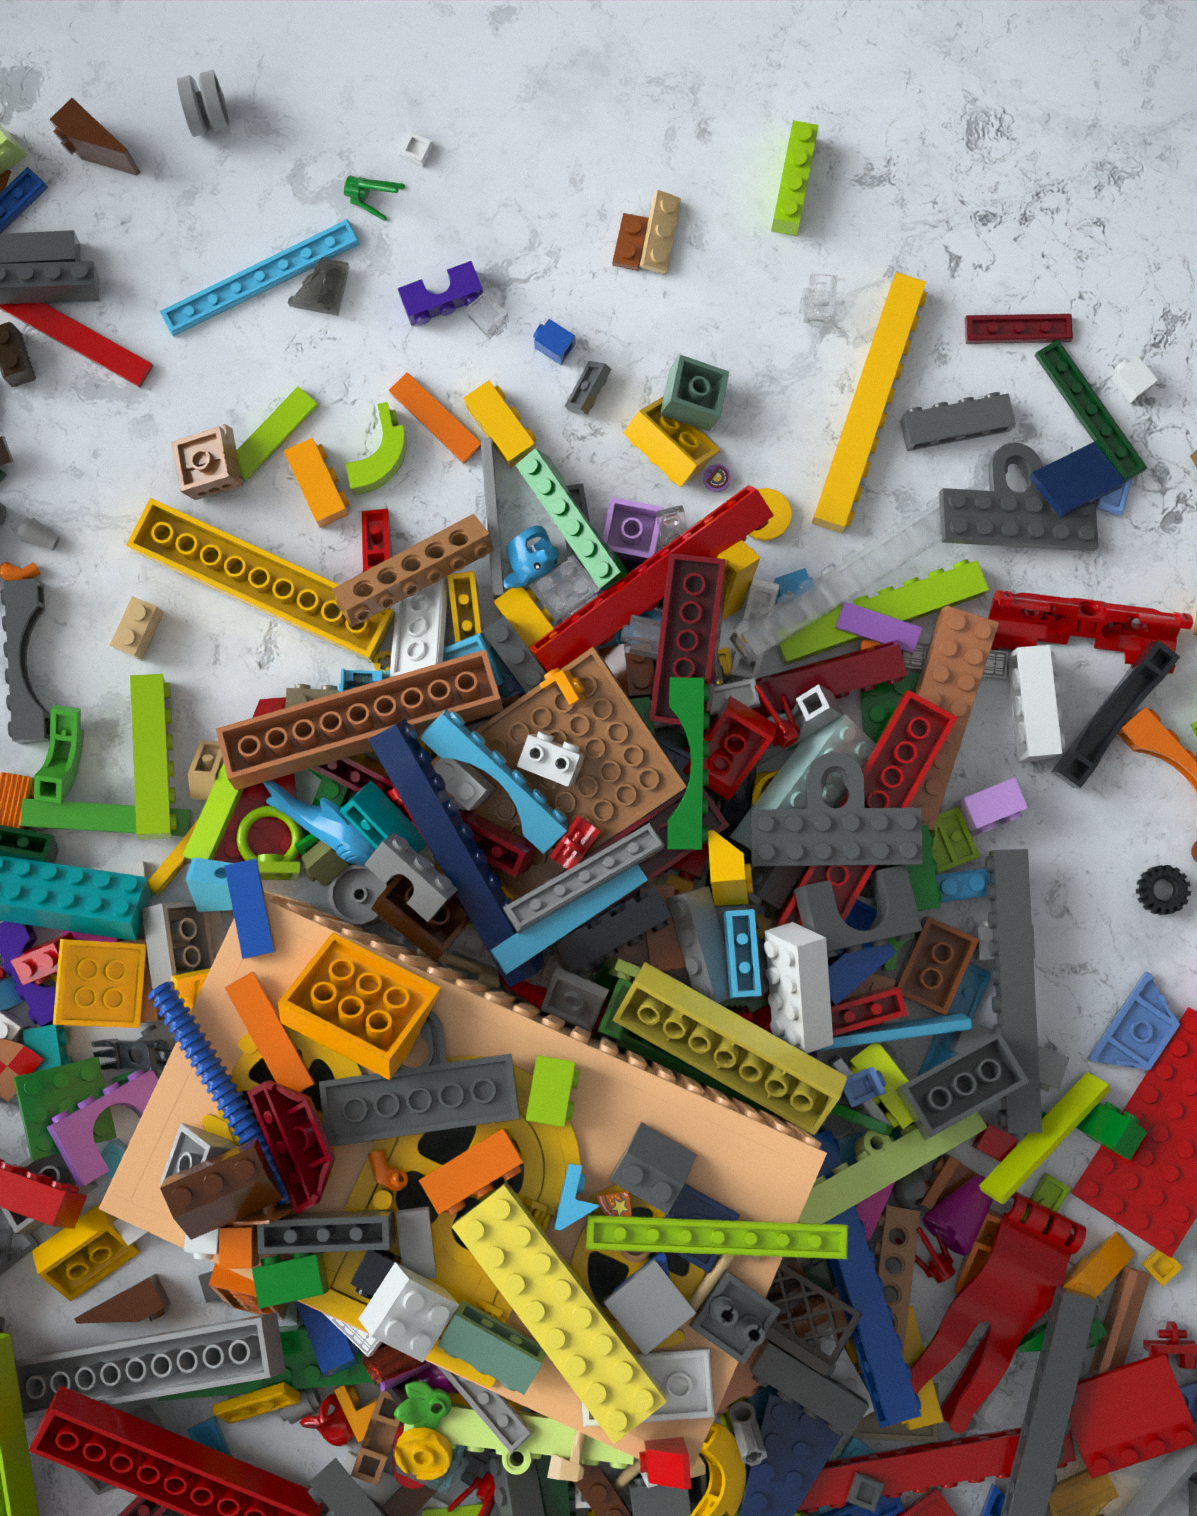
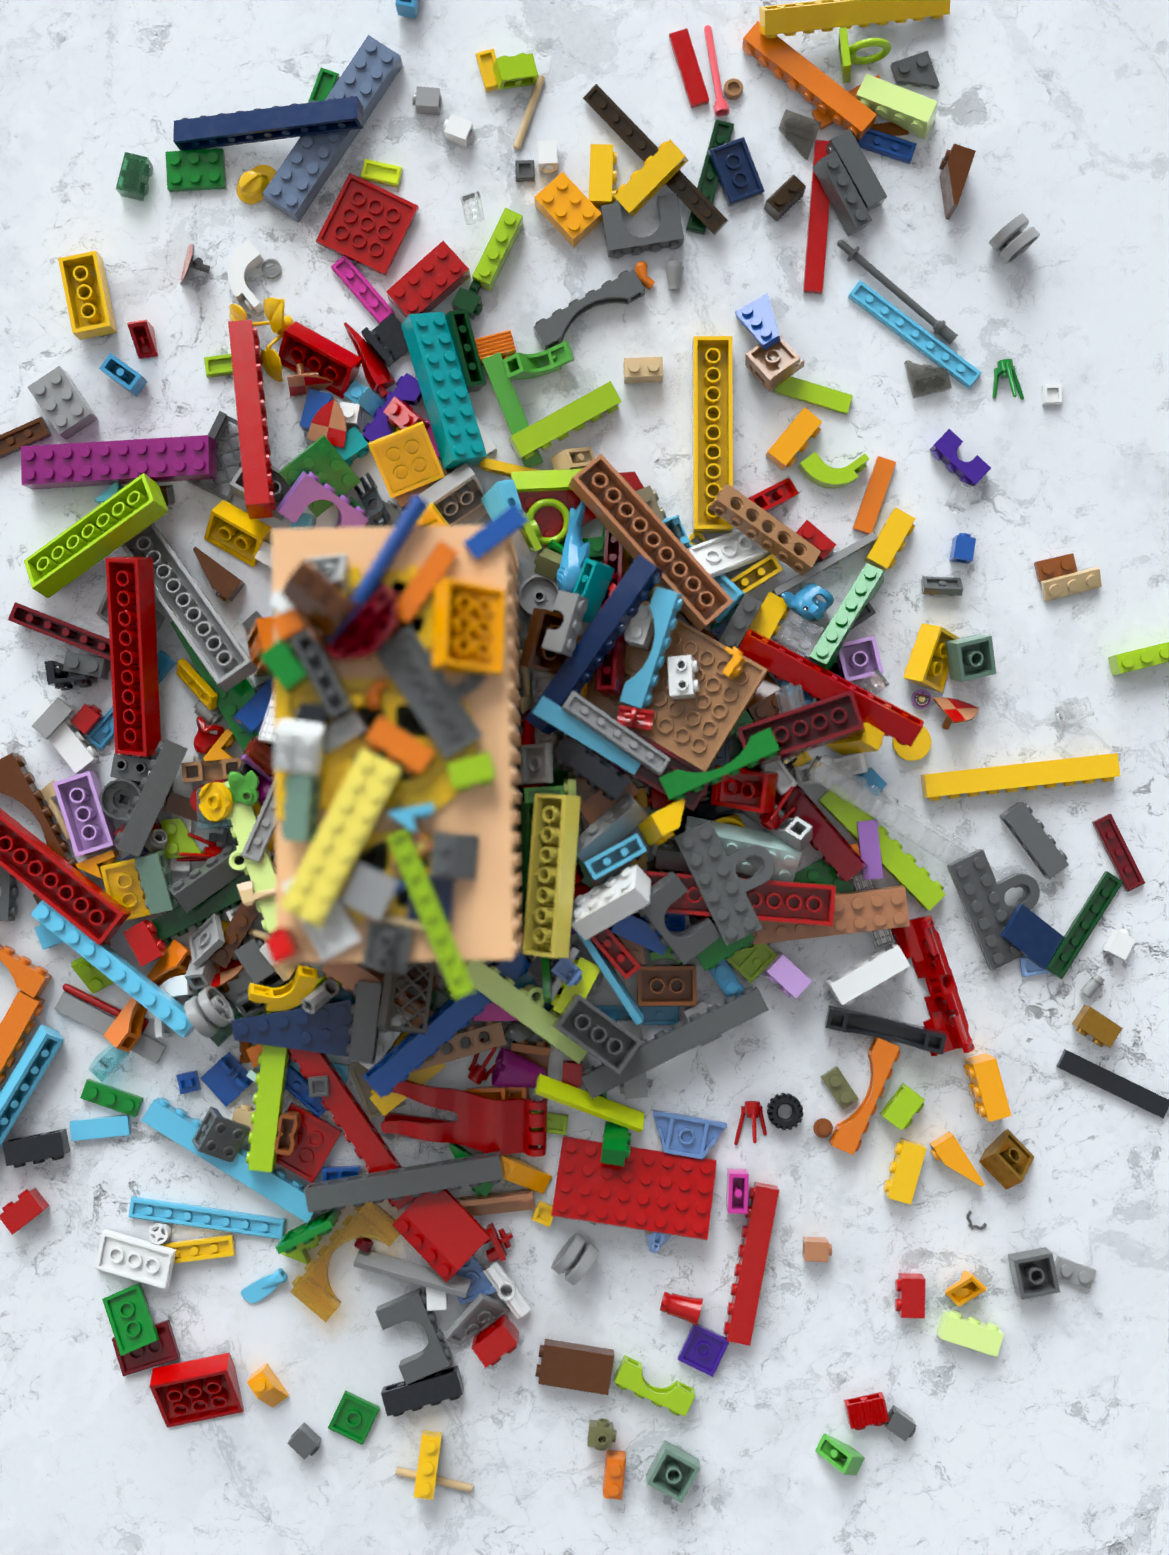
camera: 65 degrees right, 5 degrees up
(149, 455) = (760, 321): none -> wing
(265, 244) = (938, 326): none -> dark grey bar
(455, 511) = (817, 539): none -> red brick
(752, 442) = (955, 710): none -> shield
(1143, 930) = (752, 1109): none -> red plant
(1163, 806) = (839, 1088): none -> olive plate
(1170, 434) = (1092, 985): none -> light grey pin

